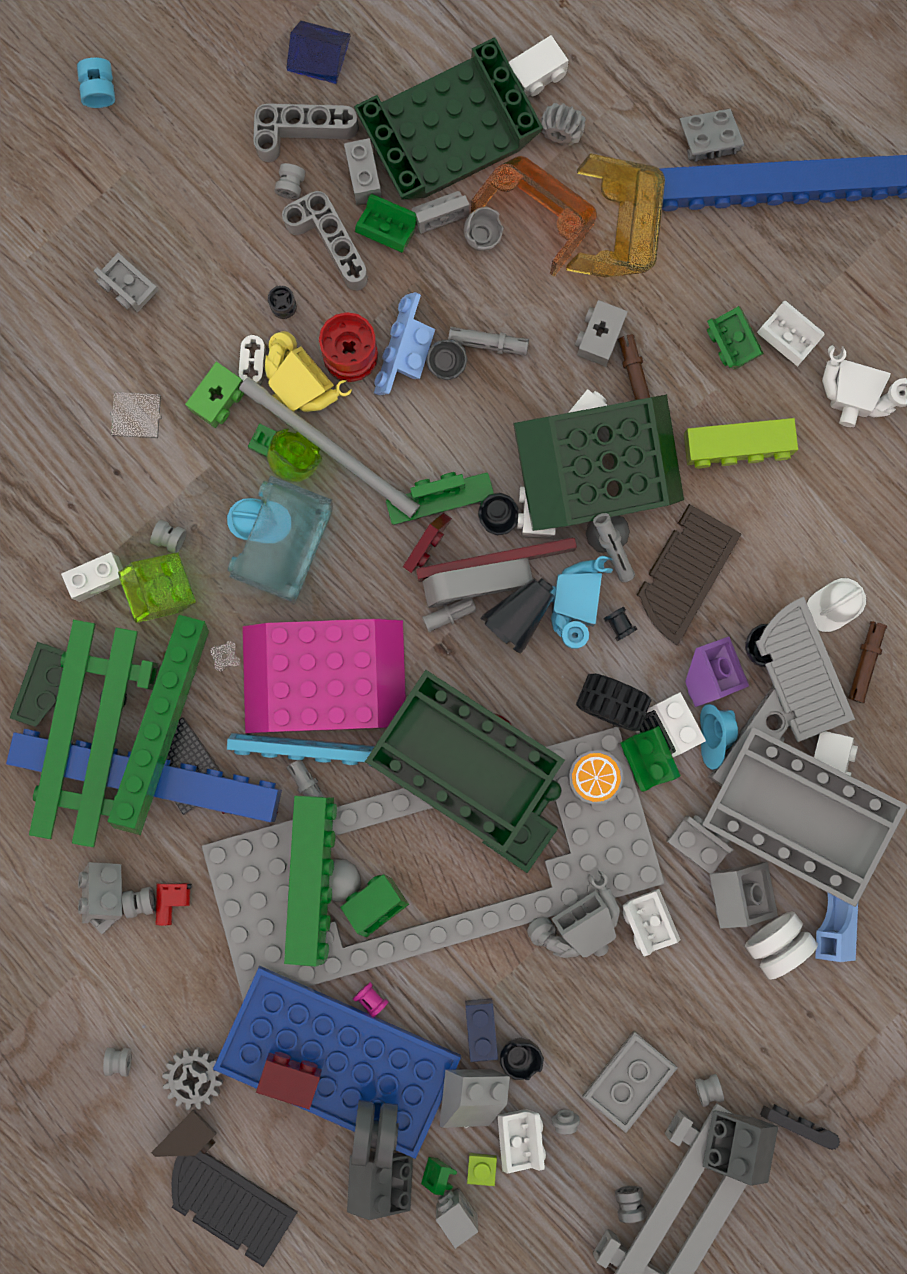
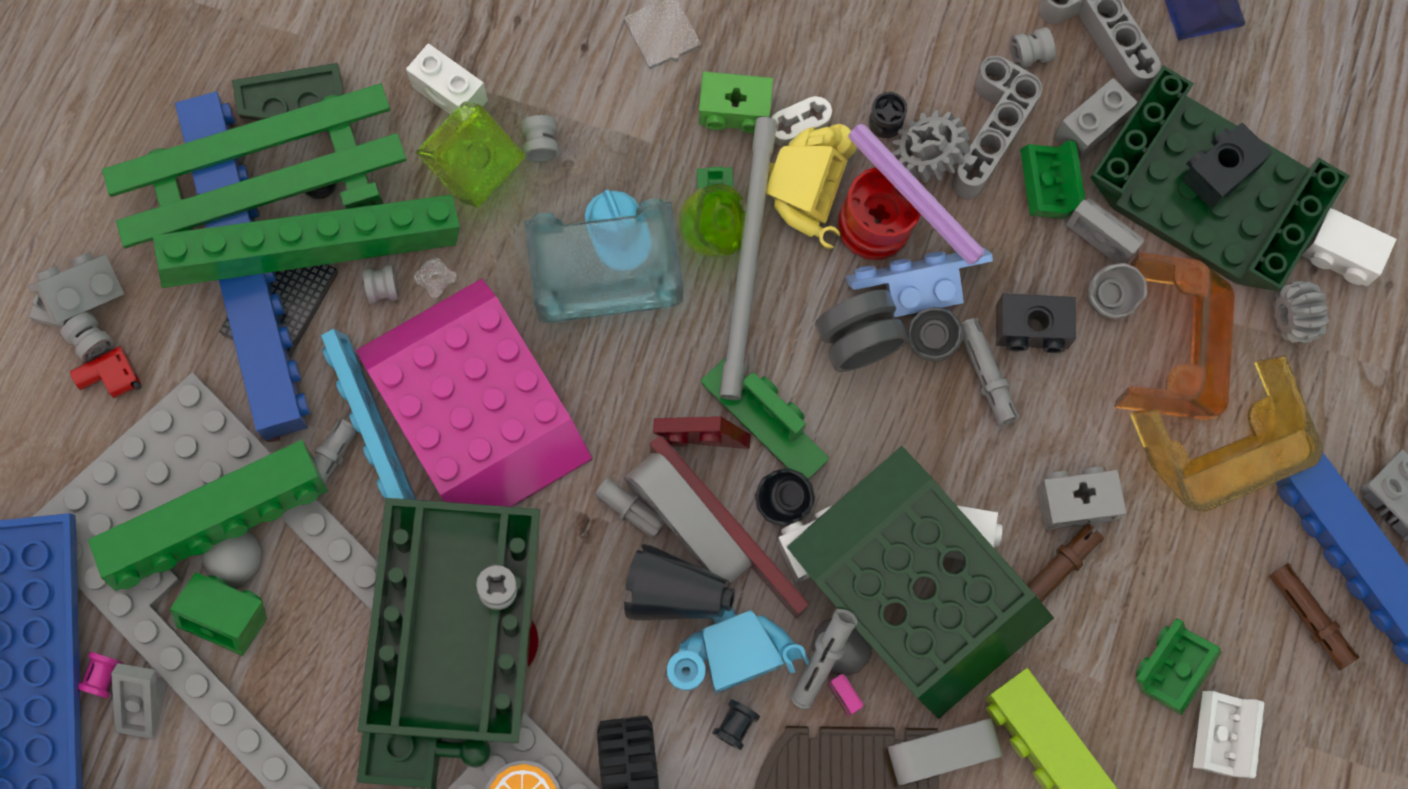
camera: 55 degrees right, 10 degrees down
(210, 693) = (381, 284): none -> light grey wheel
(320, 287) = (931, 145): none -> light grey gear
(354, 317) = (916, 194): none -> lavender axle
(401, 984) = (137, 700): none -> light grey slope
(416, 403) = (862, 330): none -> dark grey wheel
(442, 93) = (1240, 150): none -> black brick
(464, 726) = (501, 593): none -> light grey wheel
(476, 277) = (1054, 312): none -> black brick
(640, 547) = (845, 695): none -> dark pink tile
(707, 507) = (945, 751): none -> light grey beam
(757, 237) = (1316, 620): none -> reddish brown pin

